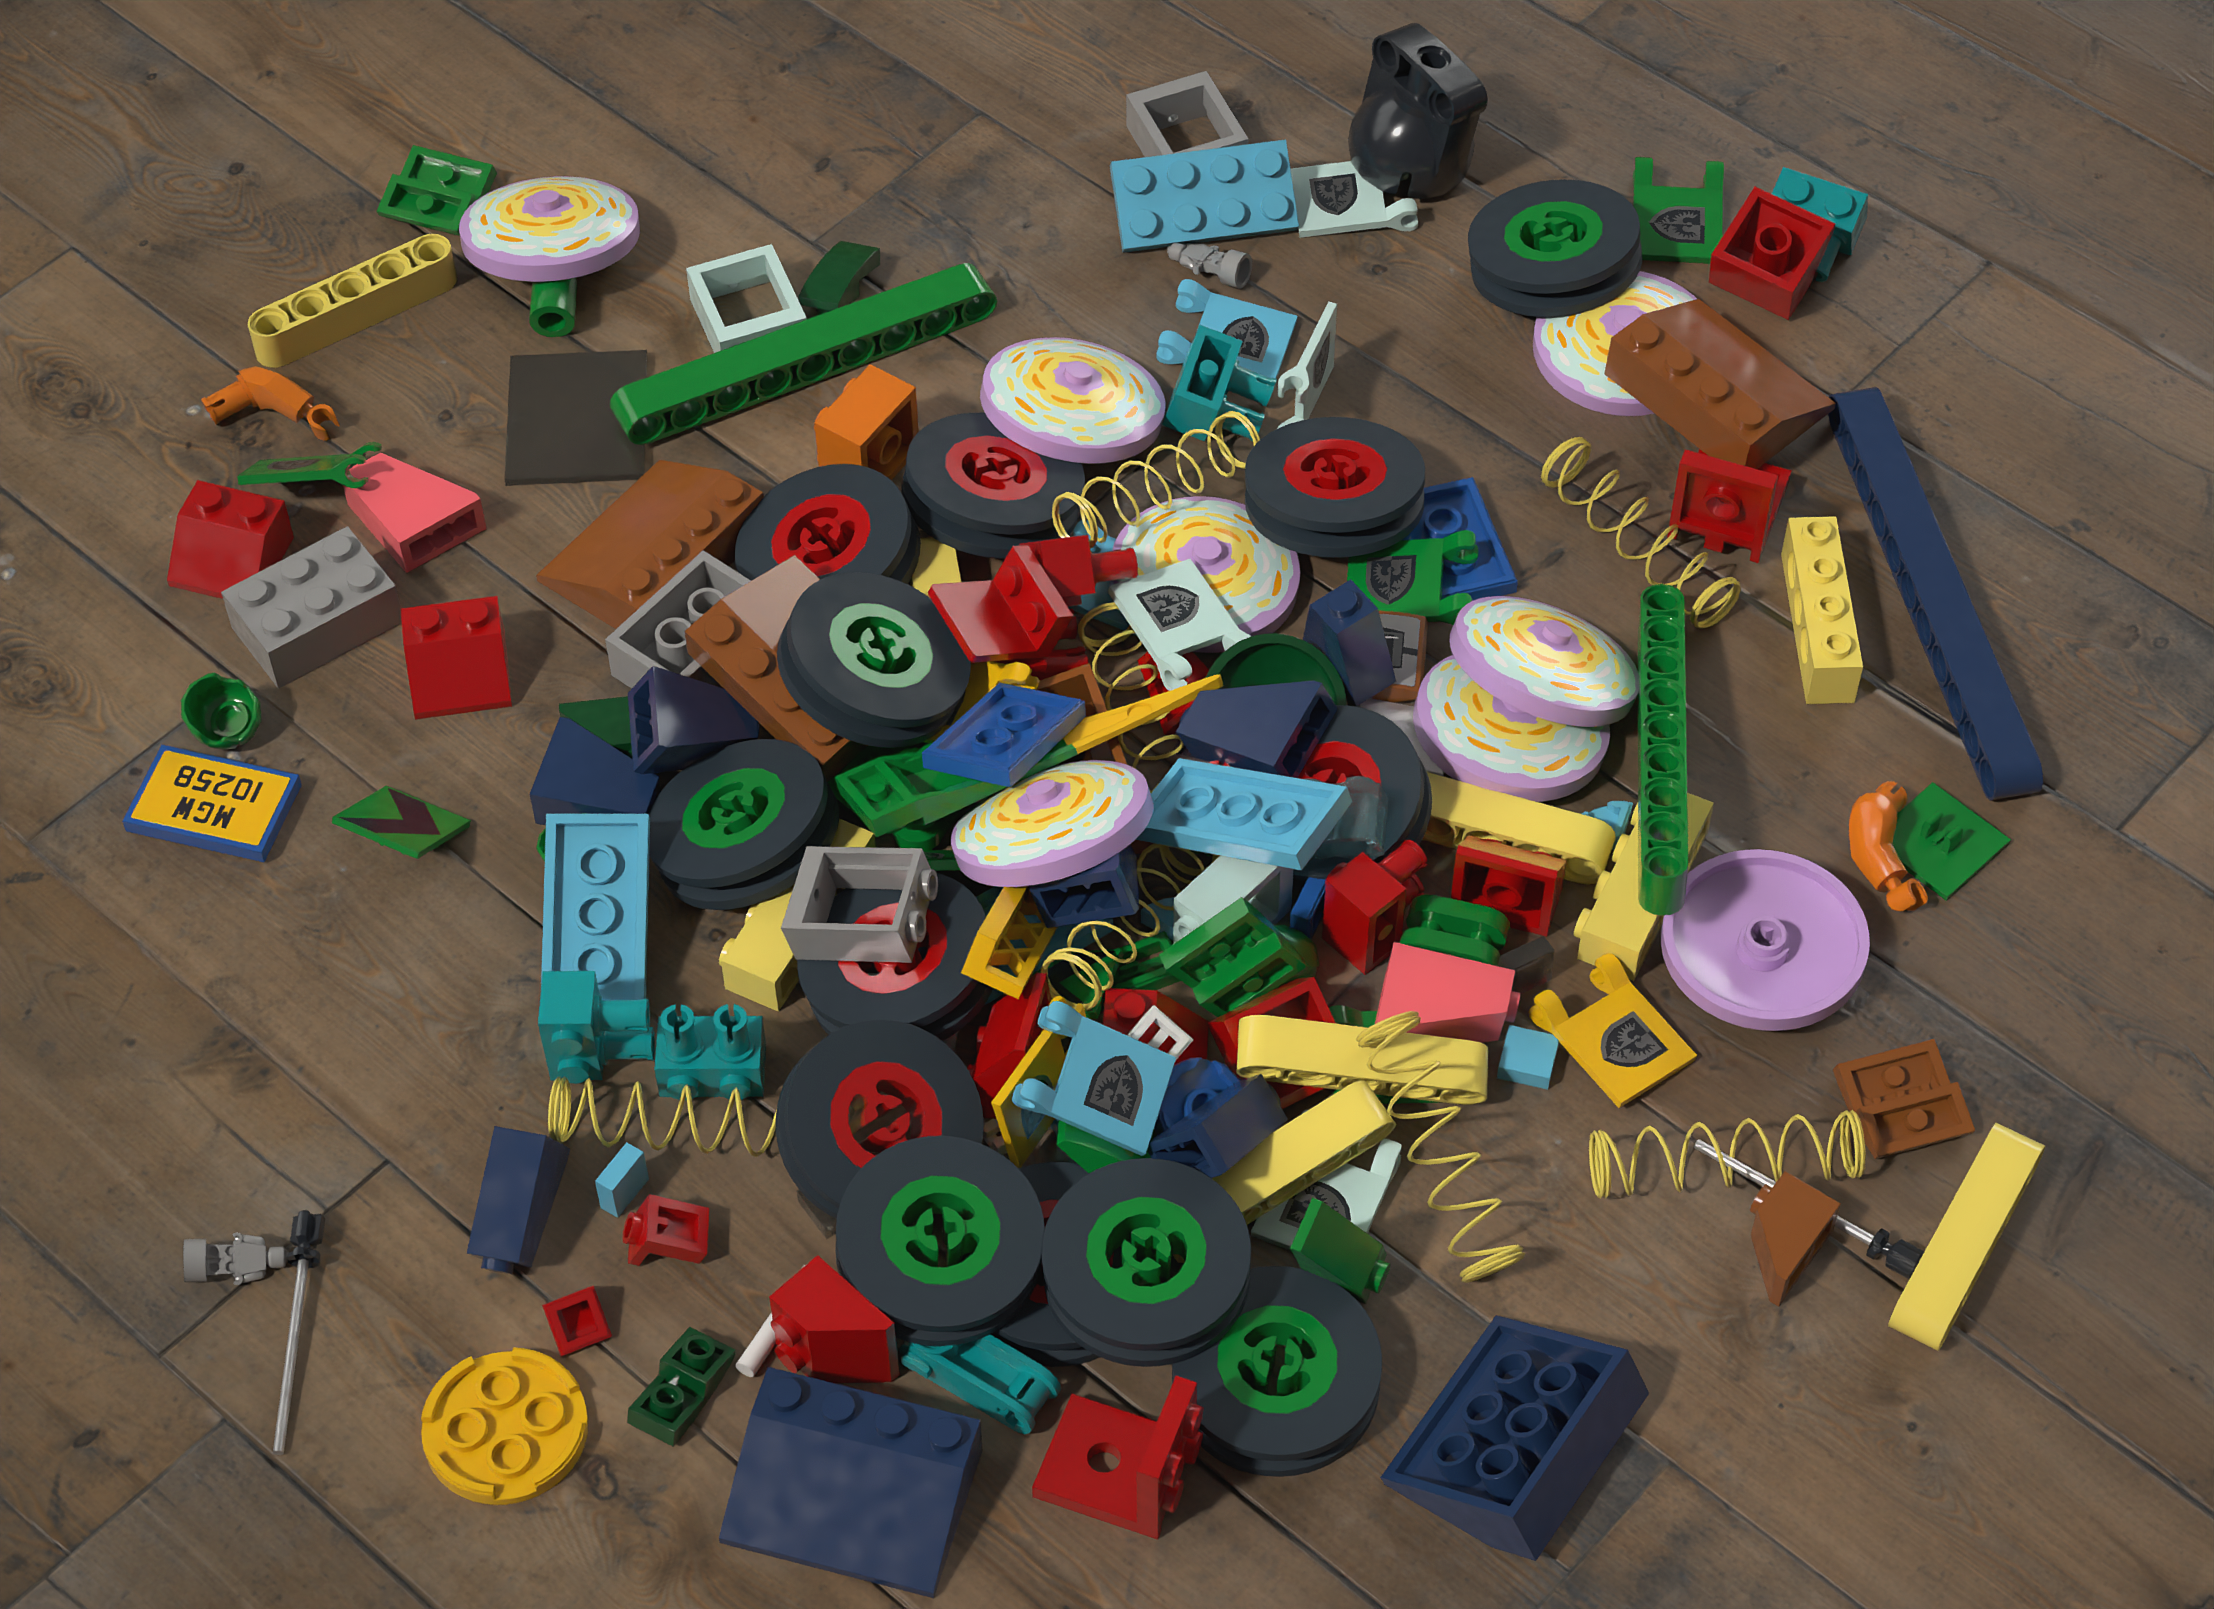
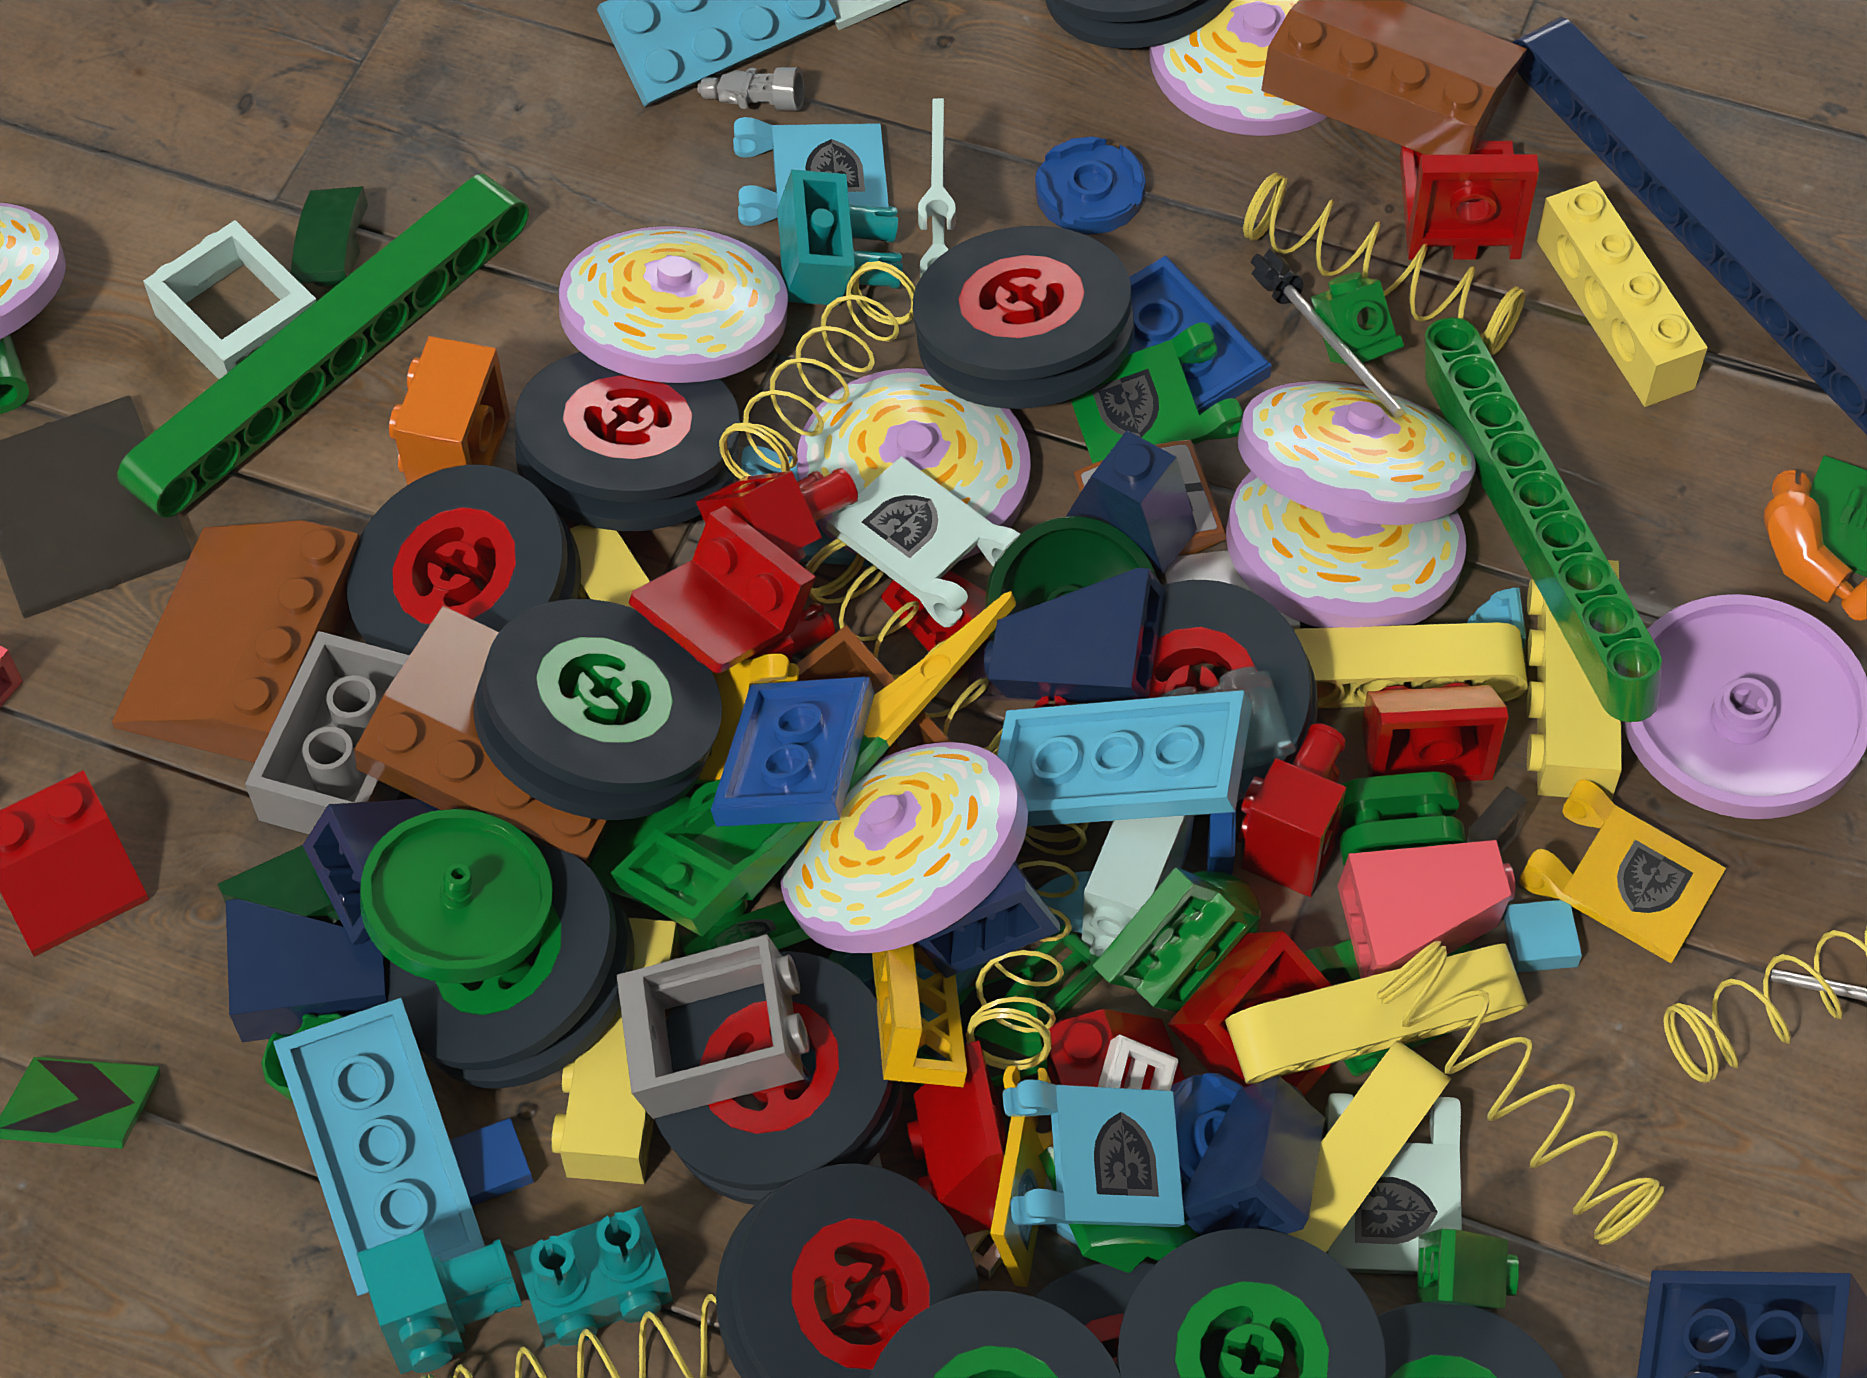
camera: 20 degrees left, 5 degrees up
(674, 958) = (491, 1161): none -> blue tile
(715, 755) = (455, 896): none -> green piece
(1440, 409) = (1090, 185): none -> blue tile
(1556, 529) = (1273, 275): none -> piece
(1585, 583) = (1340, 309): none -> green brick

